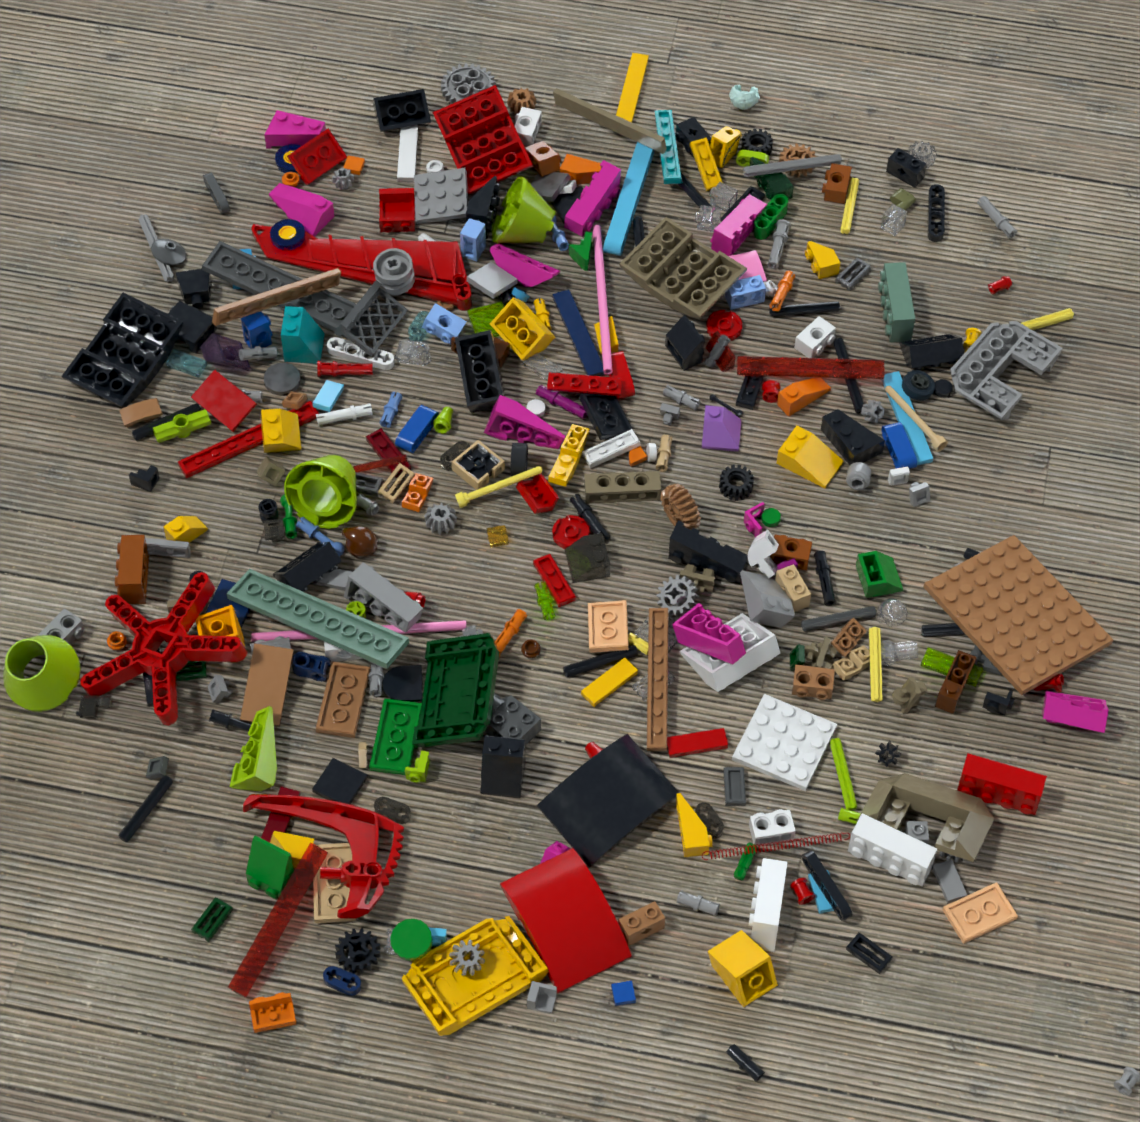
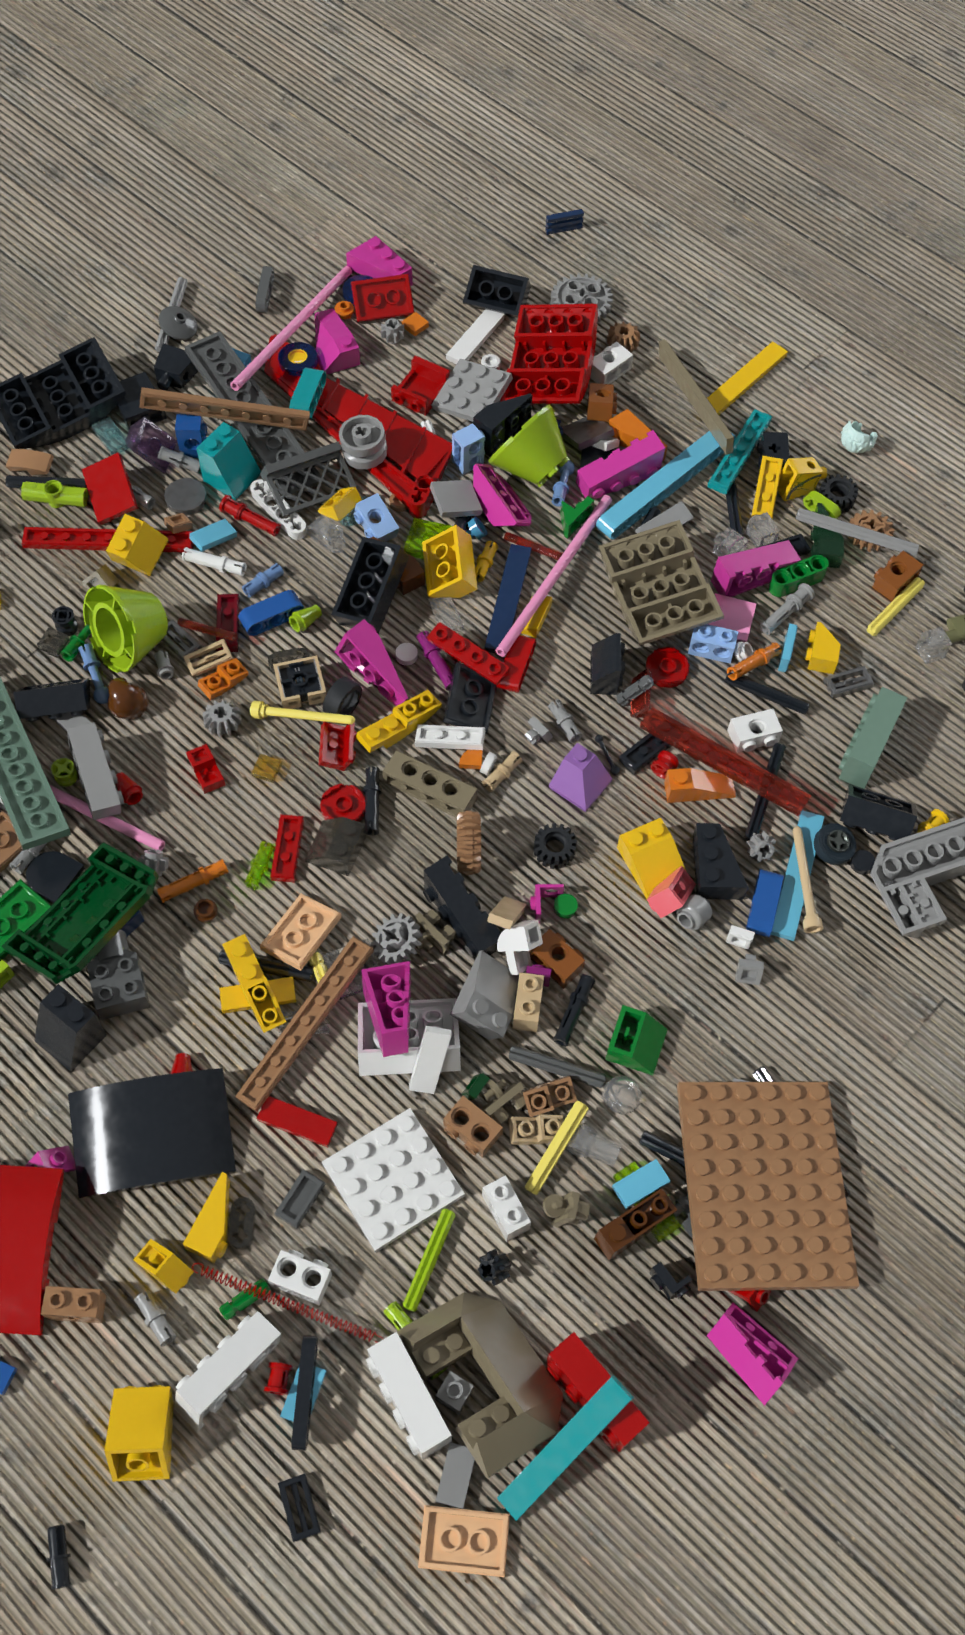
camera: 30 degrees right, 5 degrees up
(267, 213) = (288, 331): none -> bright pink piece
(318, 253) = (308, 390): none -> teal beam
(408, 325) = (341, 503): none -> yellow slope
(409, 31) = (562, 223): none -> dark blue tile
(452, 558) = (205, 768): none -> red slope
(572, 287) = (535, 546): none -> clear red bar
(605, 674) = (254, 983): none -> yellow slope
(653, 218) = (675, 513): none -> light grey tile
(679, 870) = (163, 1266): none -> yellow slope
(741, 538) = (506, 912): none -> tan tile
(760, 653) = (430, 1059): none -> white tile
(797, 269) = (787, 648): none -> medium azure tile
(836, 471) = (671, 893): none -> coral slope
(870, 716) = (506, 1208): none -> white brick
(942, 656) = (641, 1184): none -> medium azure tile
(1006, 820) = (565, 1447): none -> teal tile

